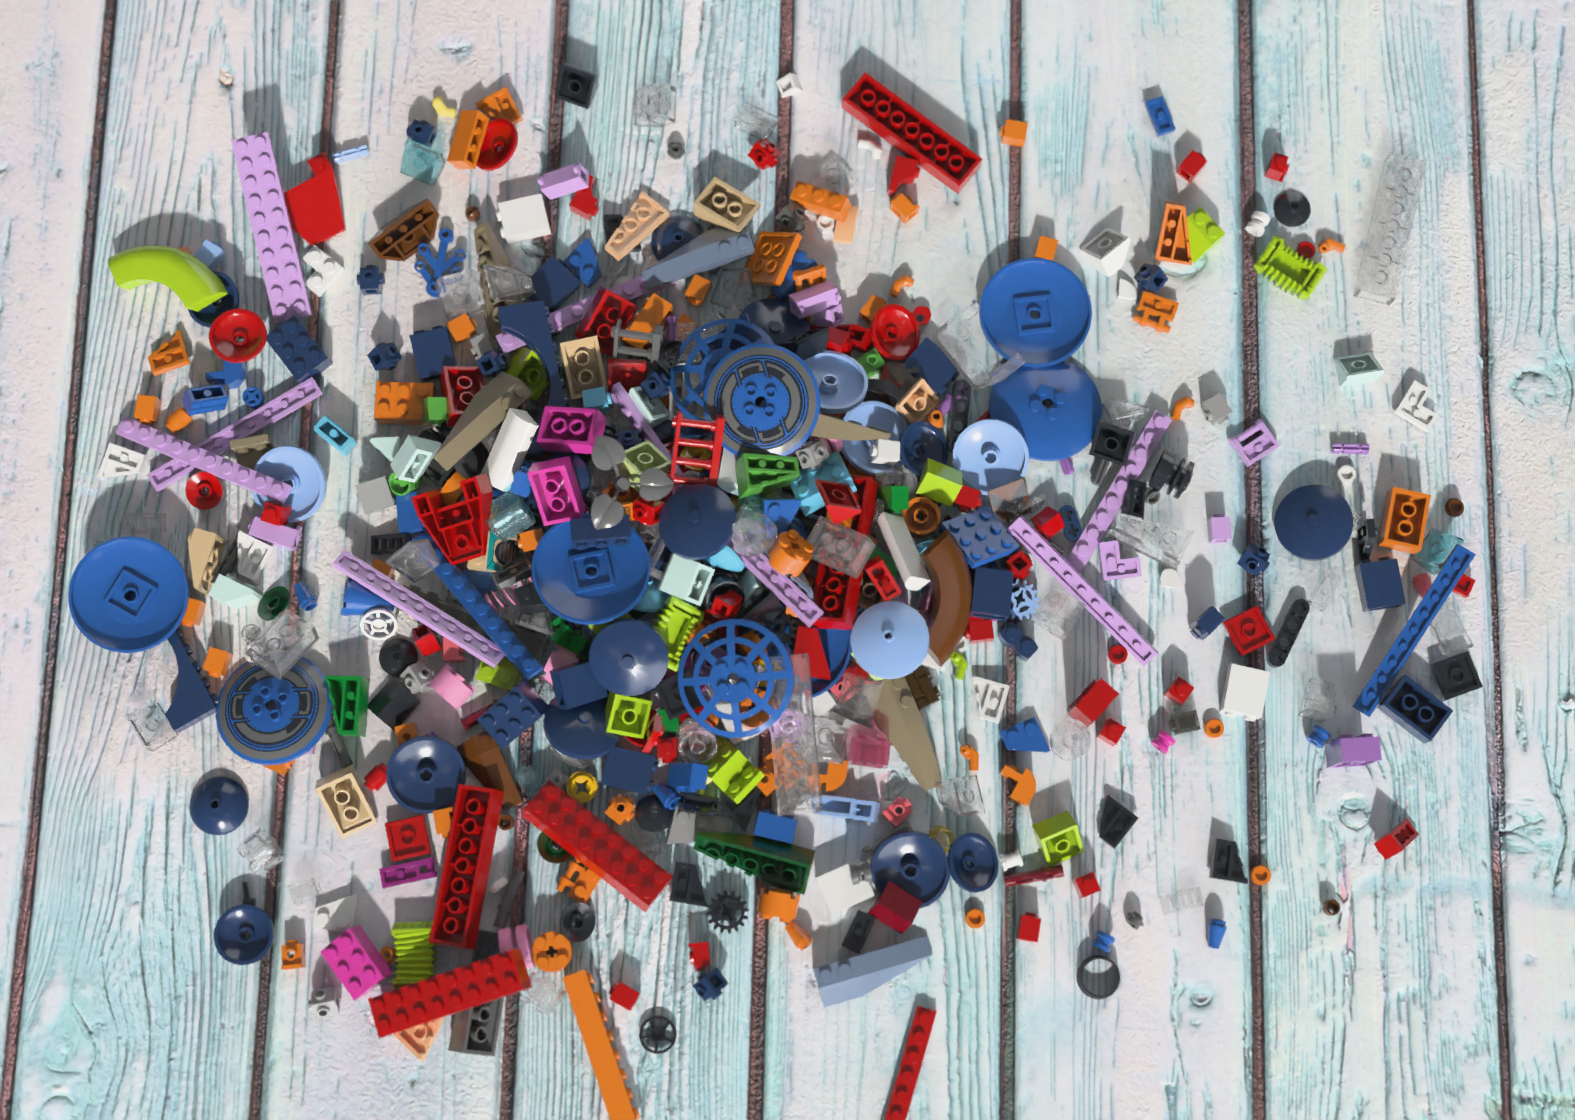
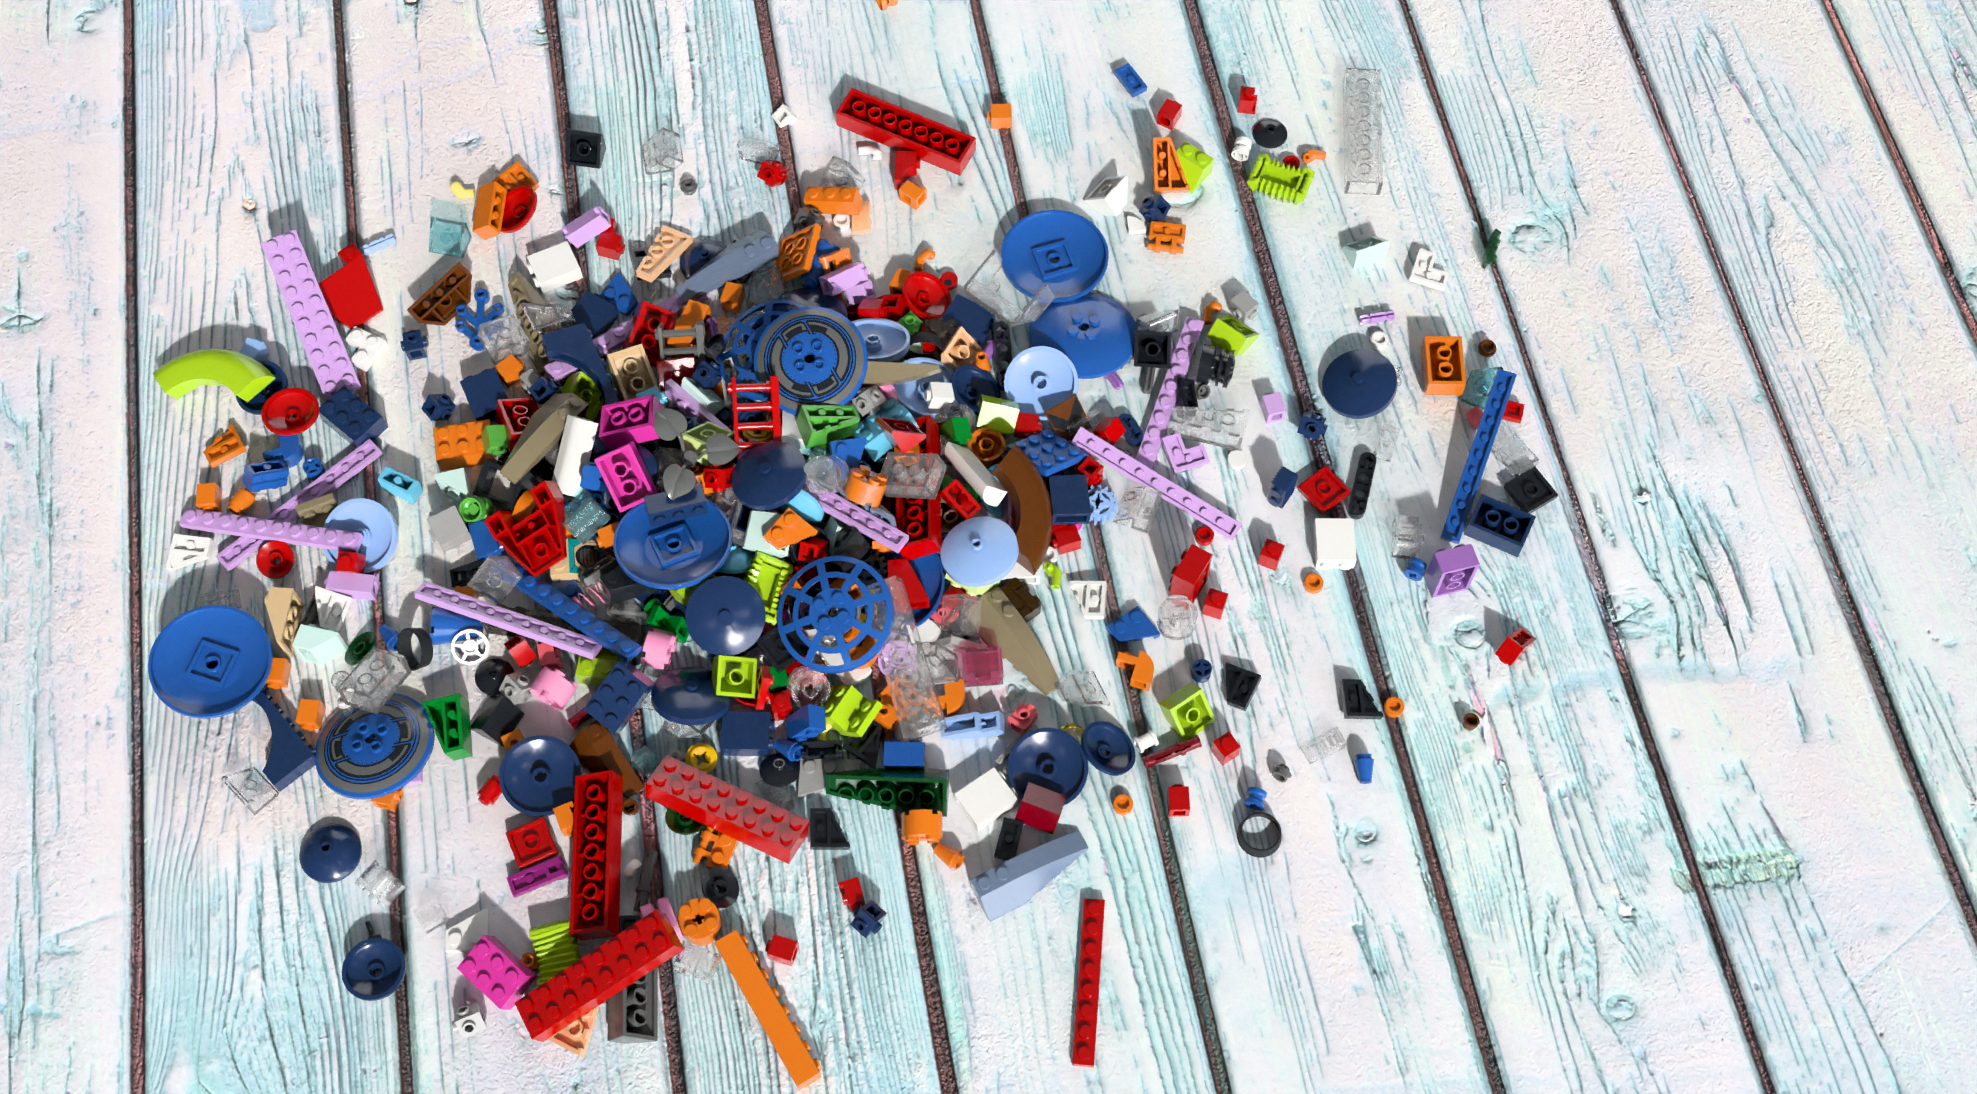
camera: 10 degrees left, 15 degrees down
(298, 960) = (431, 988): orange brick -> none
(317, 619) = (404, 647): none -> black tyre
(338, 744) = (439, 758): dark grey pin -> none
(346, 801) = (462, 820): tan slope -> none
(414, 458) = (481, 480): light aqua slope -> none
(421, 132) = (445, 210): dark blue brick -> none
(474, 216) = (504, 273): reddish brown hinge -> none
(576, 685) = (678, 656): dark blue brick -> none
(613, 810) = (744, 770): orange brick -> none
(657, 1034) = (824, 983): black wheel -> none
(706, 584) = (788, 530): none -> orange wing
(725, 206) = (742, 219): tan slope -> none
(736, 907) = (868, 837): black gear -> none
(807, 343) = (851, 308): black slope -> none
(857, 877) = (998, 777): dark grey wheel -> none
(972, 755) = (1084, 653): orange arm -> none
(1021, 645) = (1108, 542): dark blue brick -> none
(1046, 248) = (1052, 201): orange brick -> none
(1083, 796) = (1202, 666): none -> dark blue wheel
(1162, 741) = (1267, 603): dark pink wheel -> none
(1184, 723) = (1284, 582): clear smoke brick -> none
(1197, 439) = (1232, 335): none -> lime slope
(1257, 448) = (1290, 332): lavender plate -> none
(1366, 537) = (1411, 386): black wing -> none
(1379, 584) = (1436, 426): dark blue brick -> none
(1487, 396) = (1490, 251): none -> clear green slope

